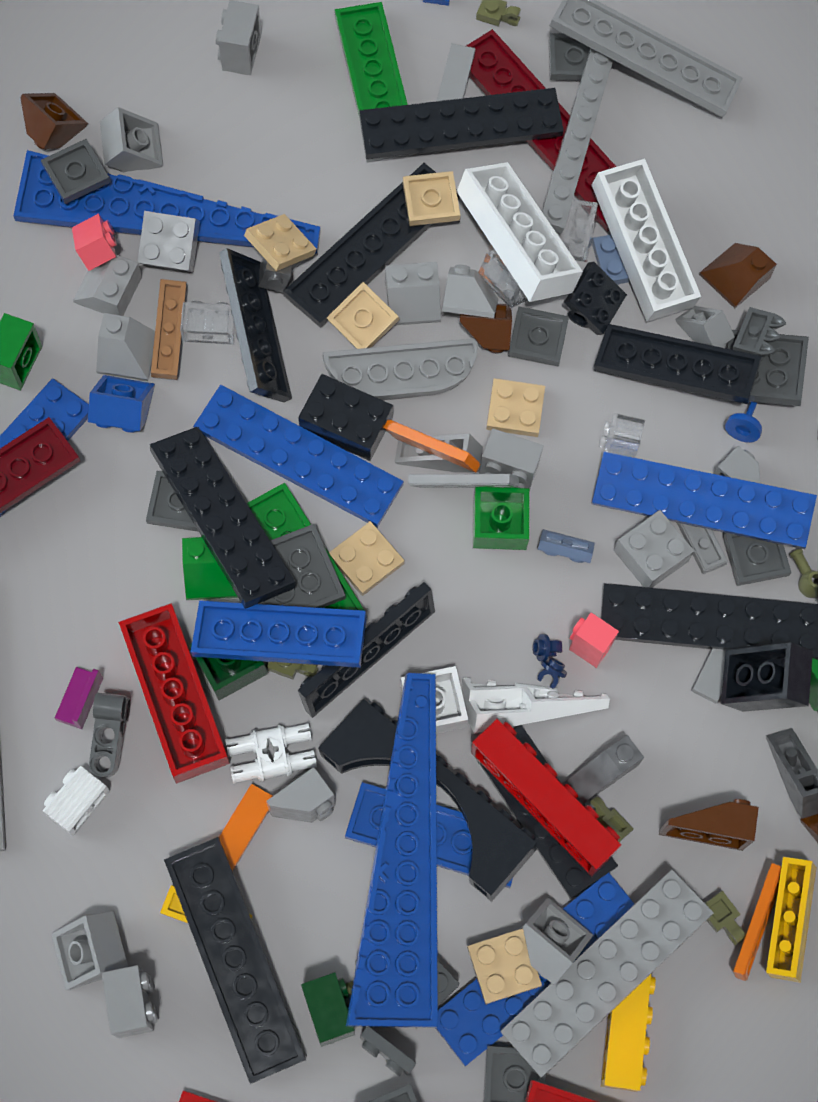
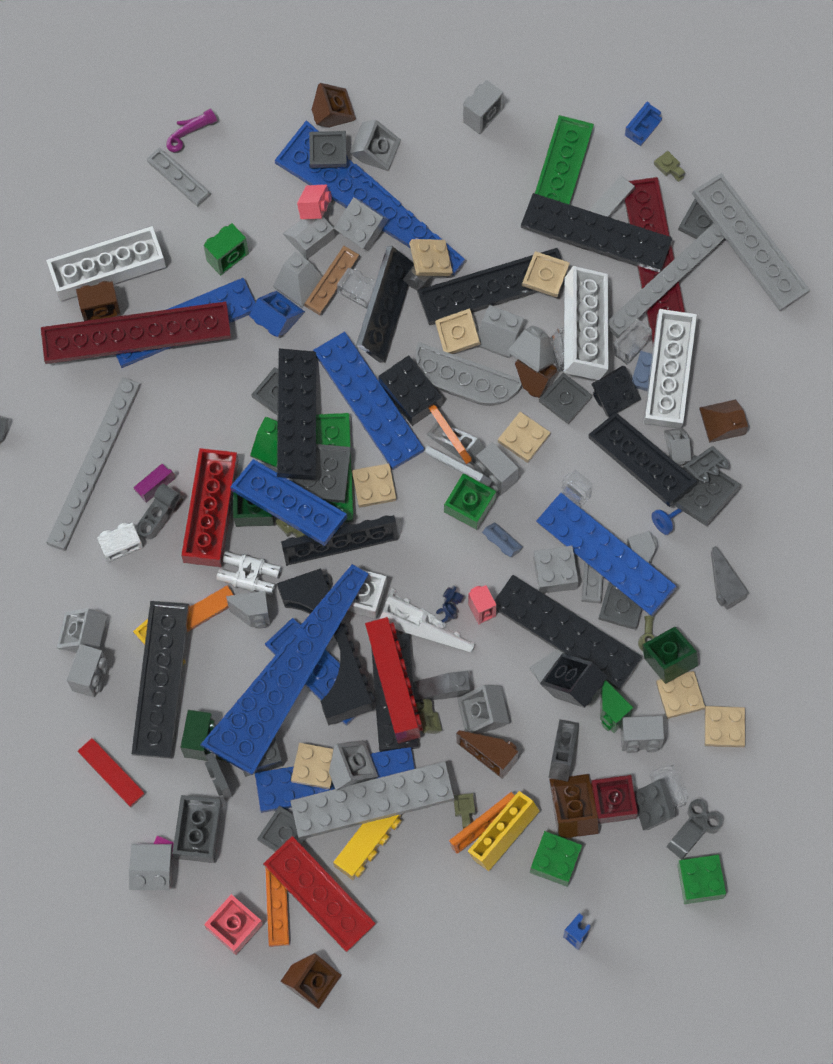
camera: 35 degrees right, 0 degrees up
(670, 774) = (483, 709): none -> light grey slope

